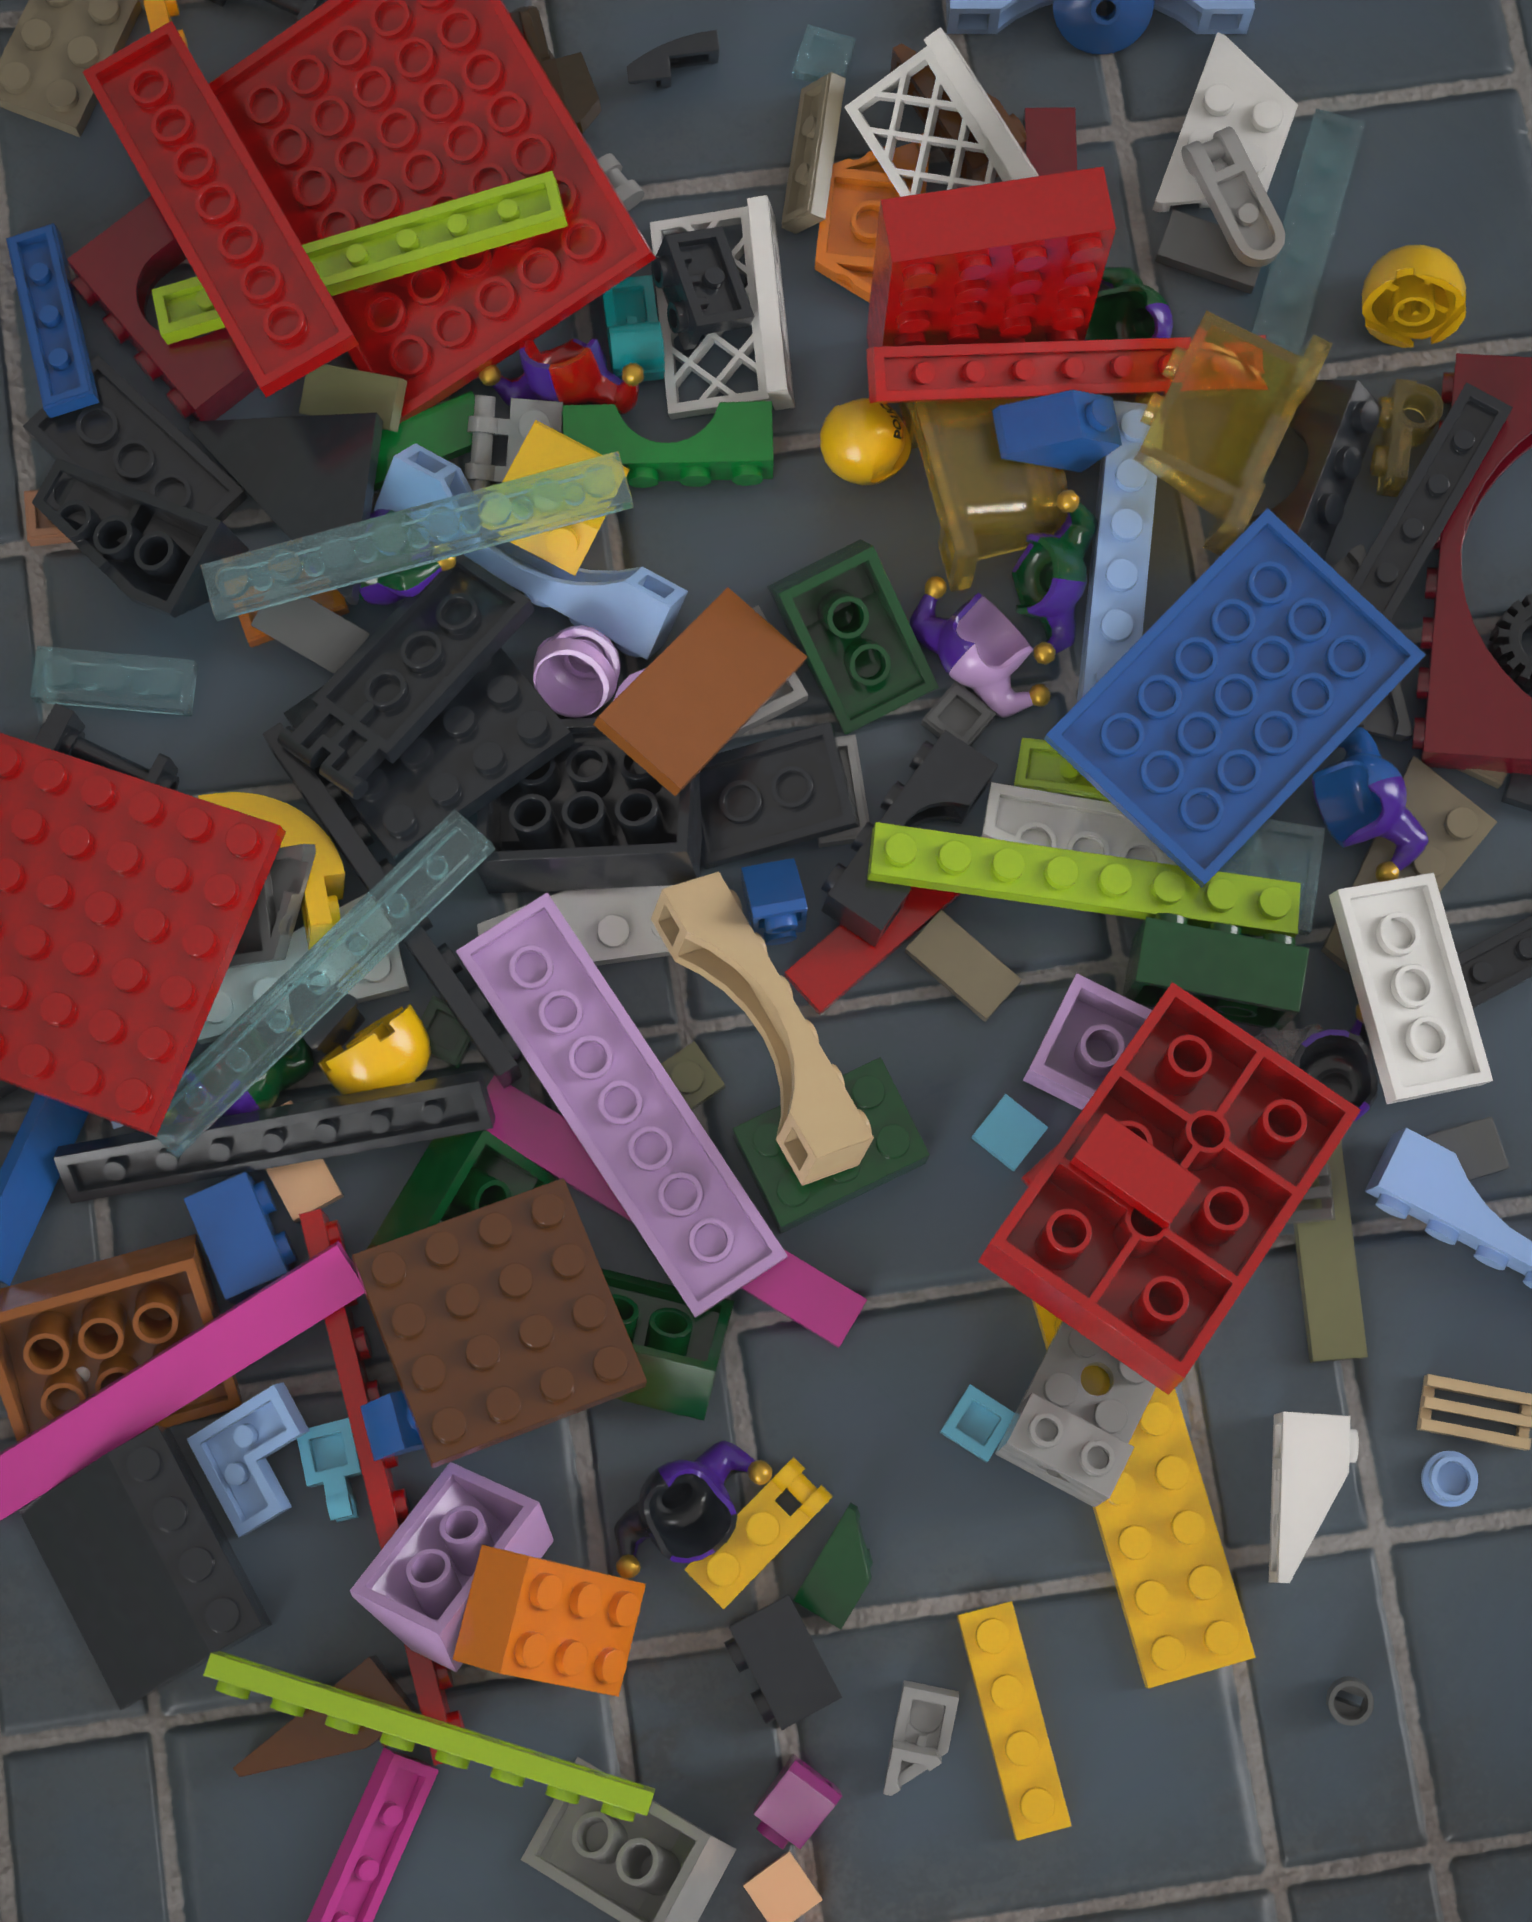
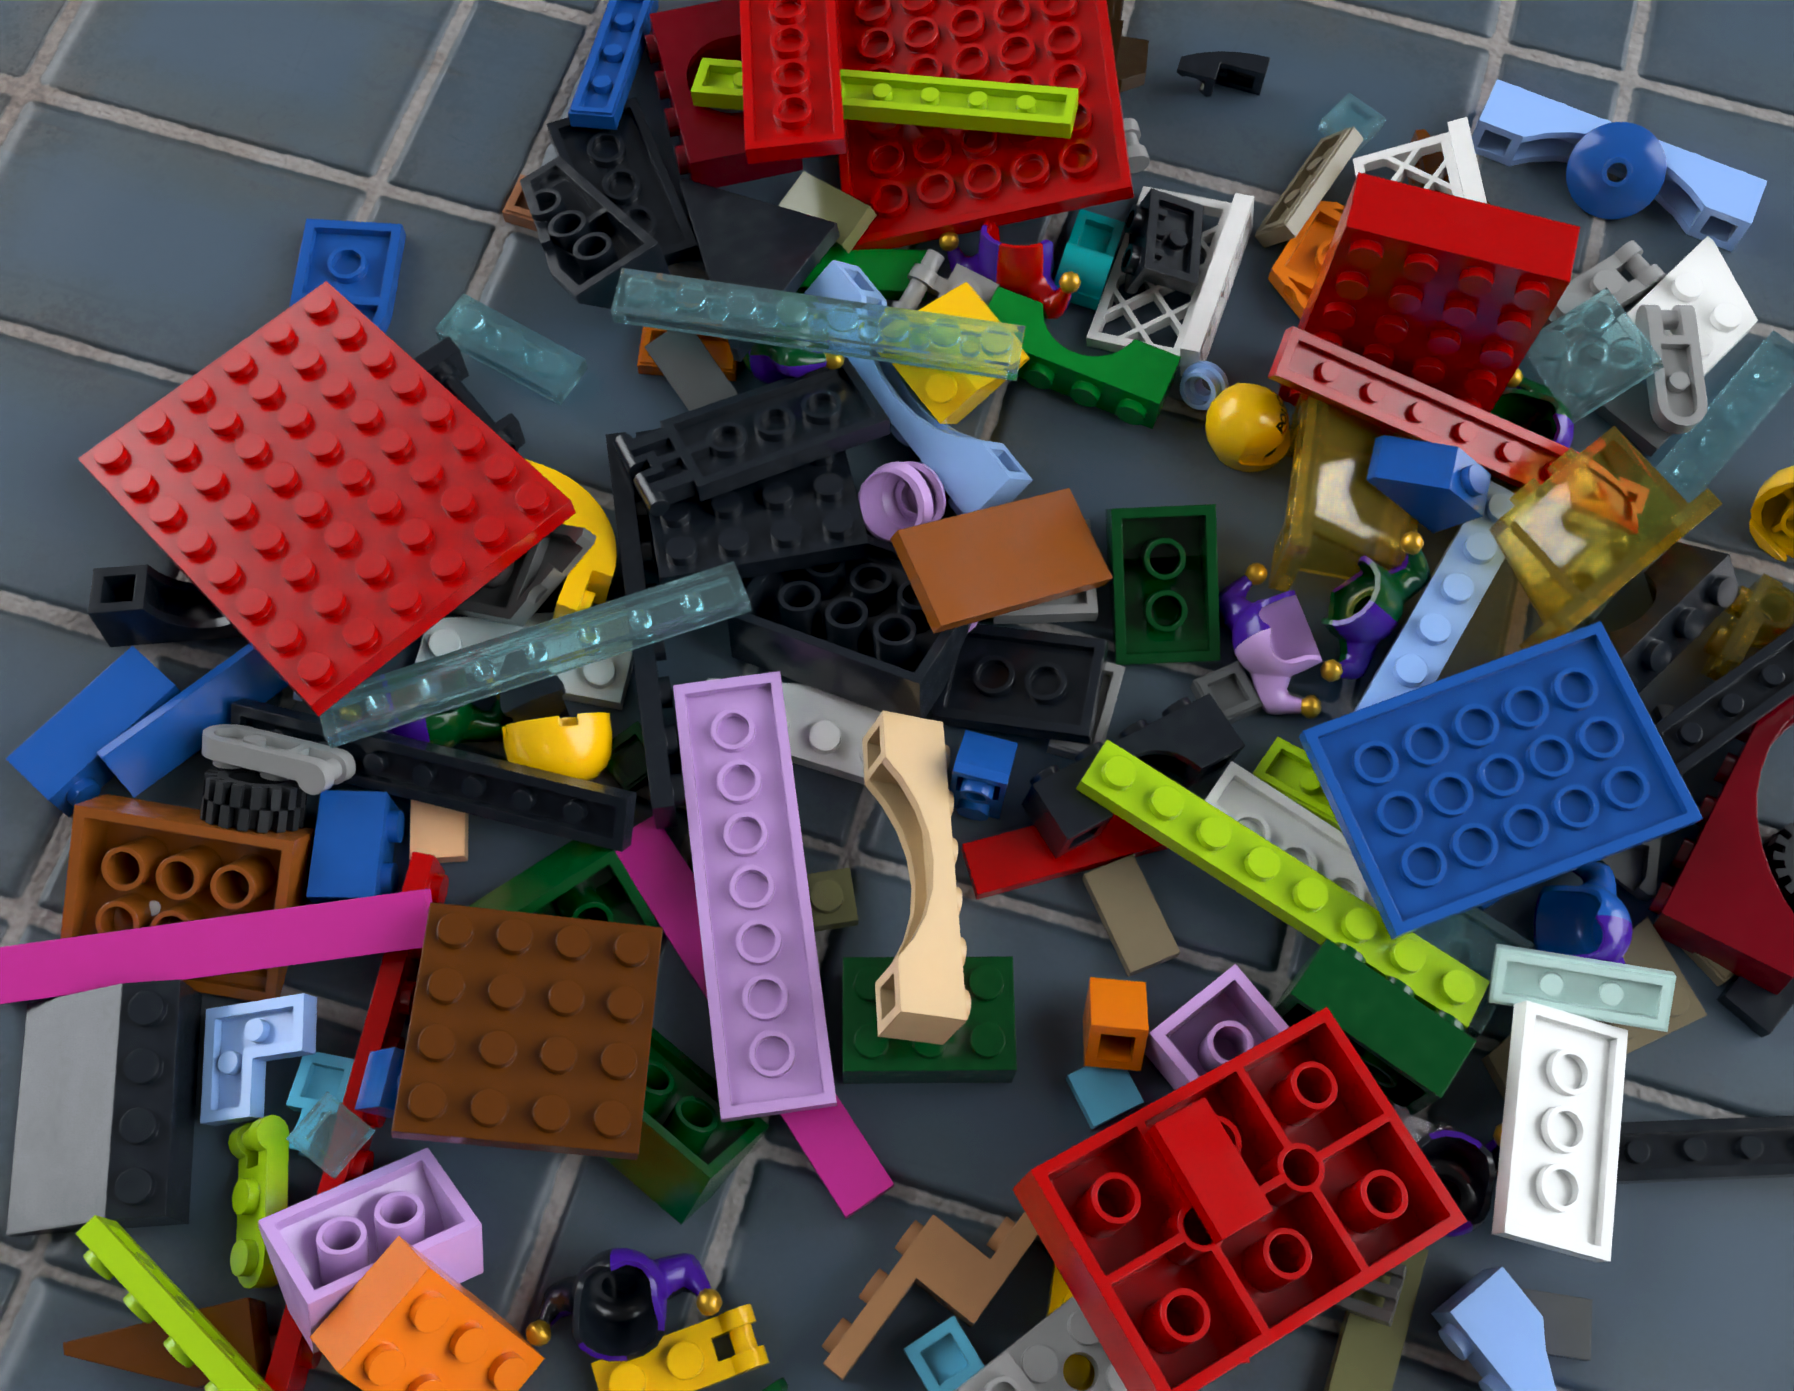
camera: 25 degrees right, 10 degrees down
(126, 1187) = (277, 756): none -> light grey plate
(127, 1236) = (250, 802): none -> black tyre
(326, 1572) = (258, 1194): none -> lime plate
(367, 1491) = (330, 1135): none -> clear light blue tile
(802, 416) = (1191, 384): none -> light blue plate
(941, 1349) = (942, 1267): none -> medium nougat bracket
(994, 1072) = (1115, 1024): none -> orange brick
(1140, 137) = (1608, 275): none -> light grey plate
(1160, 219) = (1592, 355): none -> clear light blue plate
(1380, 853) = (1583, 986): none -> light aqua tile

